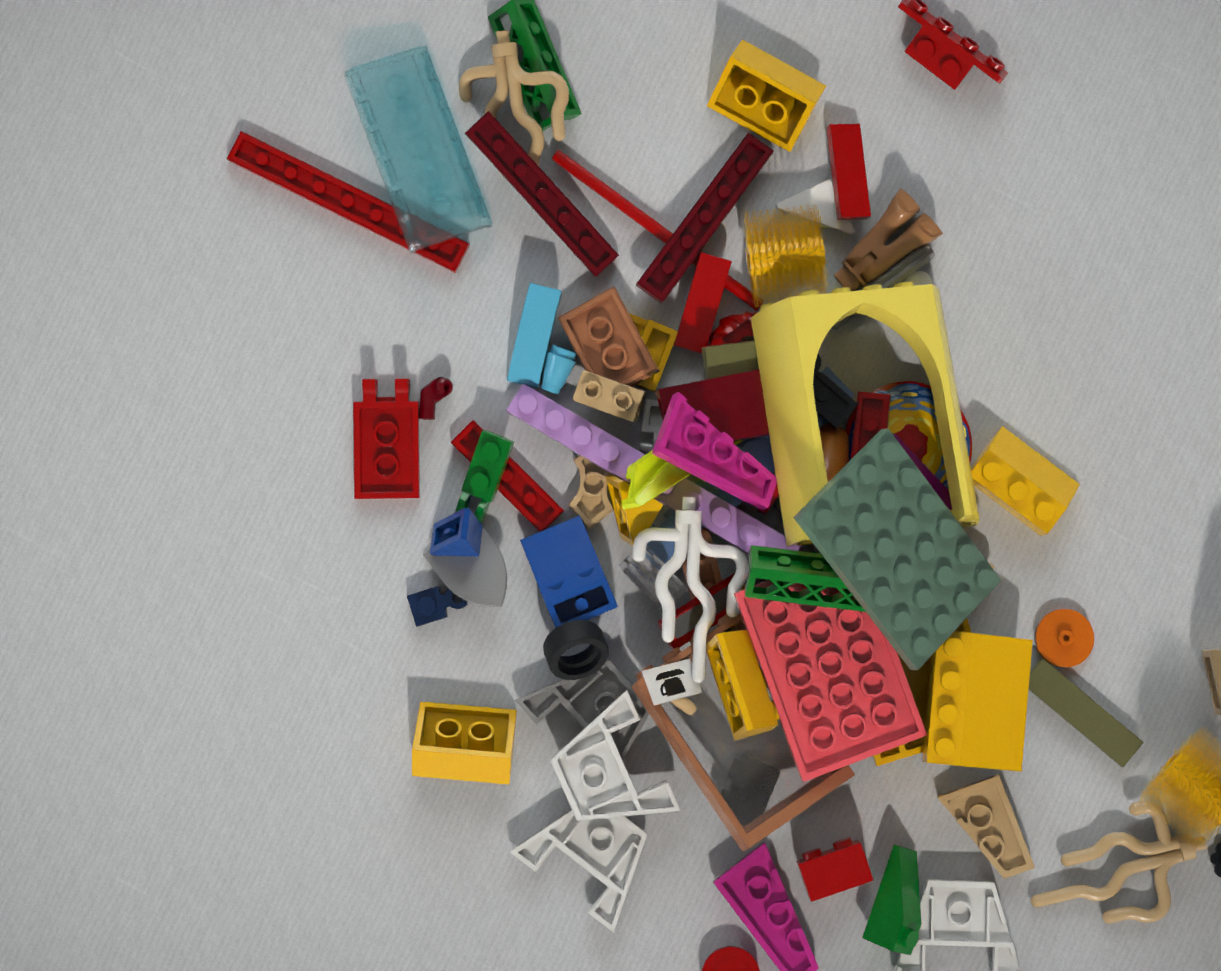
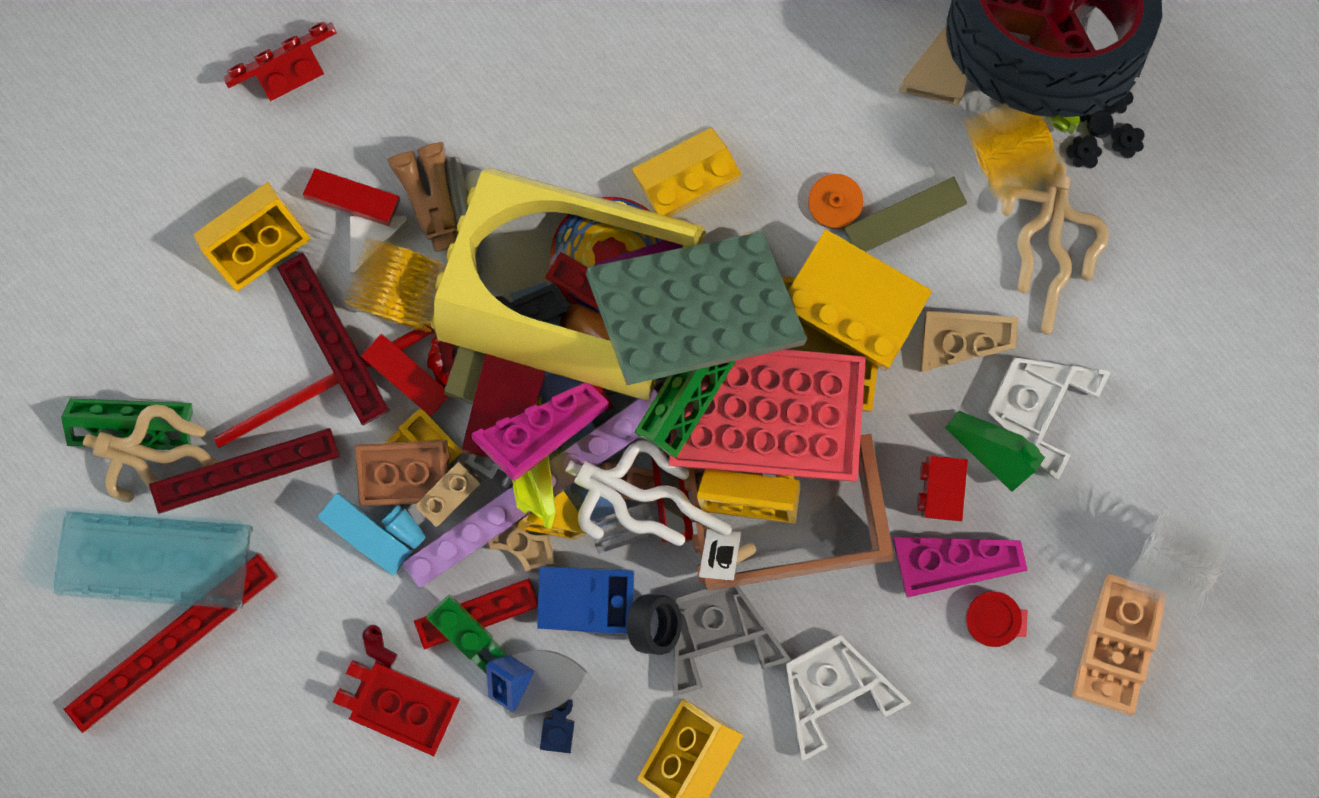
camera: 70 degrees left, 0 degrees up
(596, 775) = (768, 655): white wing -> none

